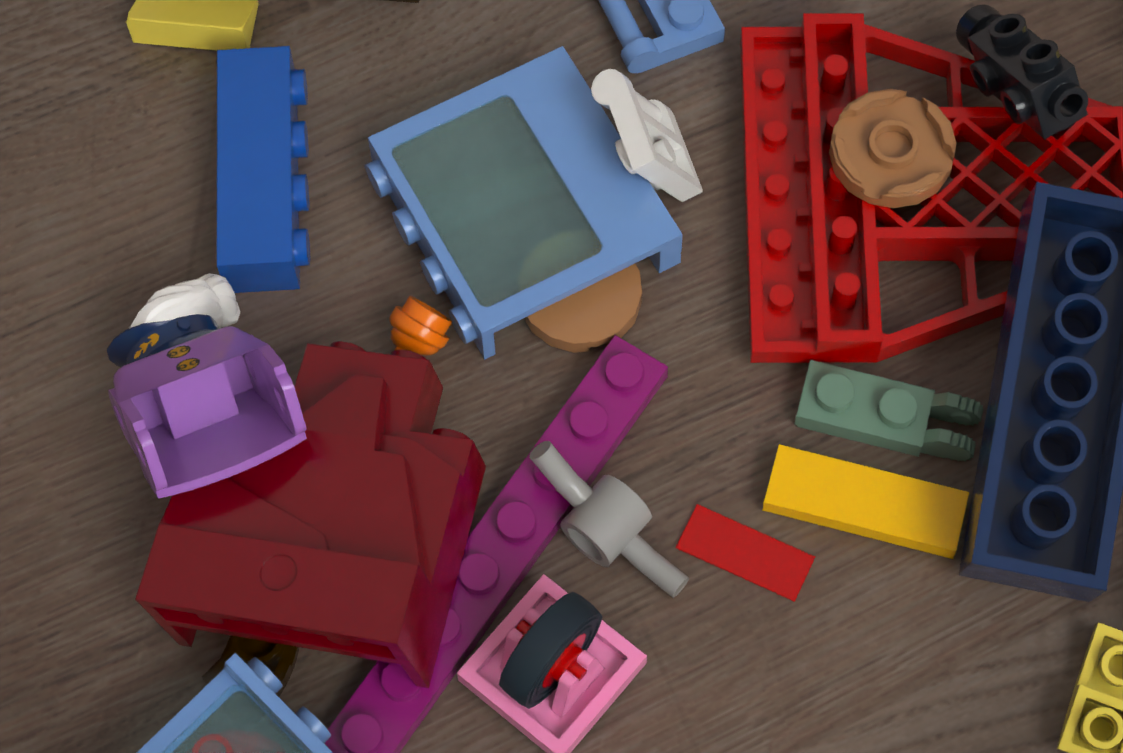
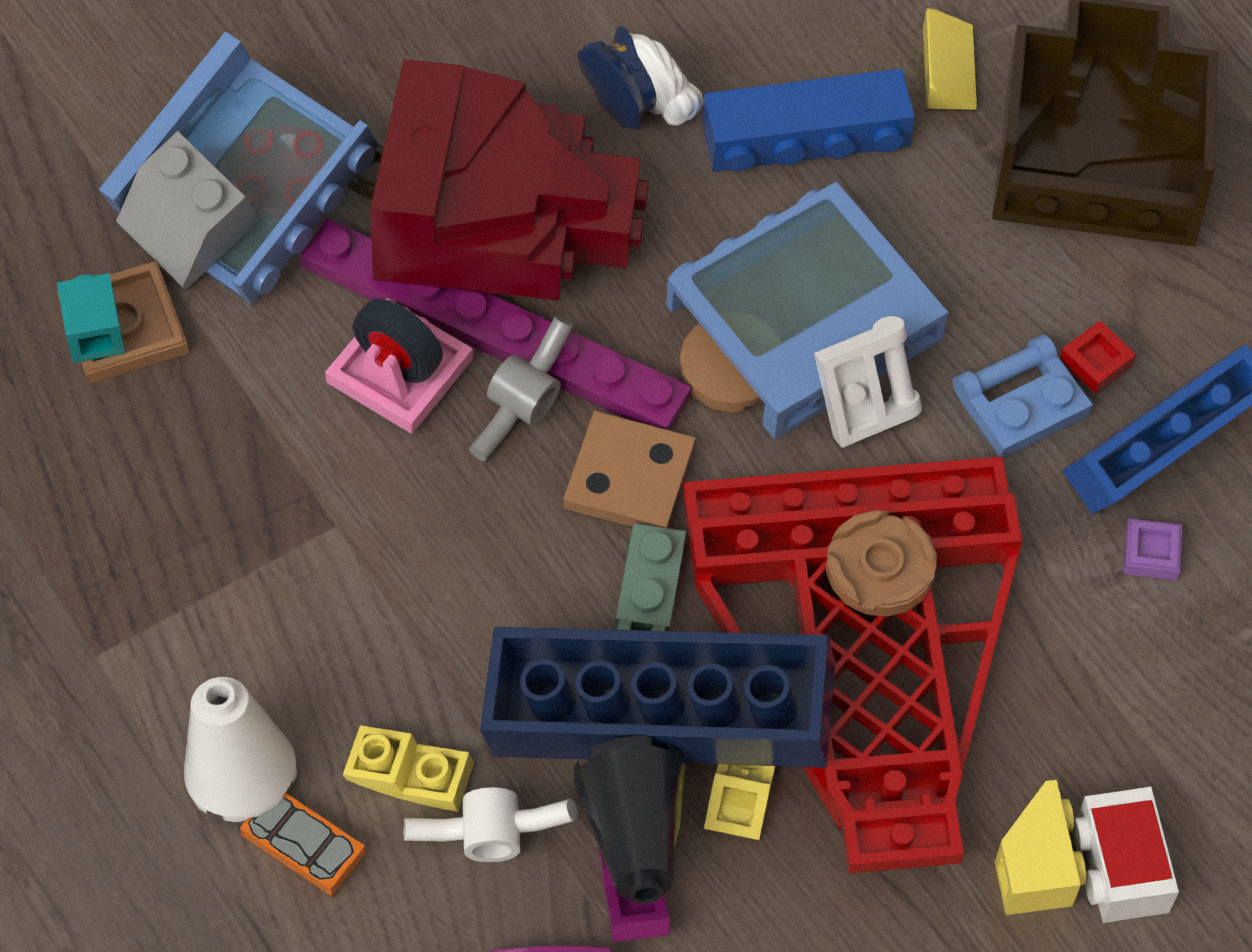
camera: 80 degrees right, 5 degrees down
(206, 410) = (555, 77): medium lavender piece -> none
(419, 327) = (679, 245): orange plate -> none
(720, 417) = (628, 472): none -> medium nougat tile
(745, 552) = (515, 502): red sticker -> none
(866, 501) = (568, 568): yellow tile -> none
(1022, 70) = (967, 651): black brick -> none

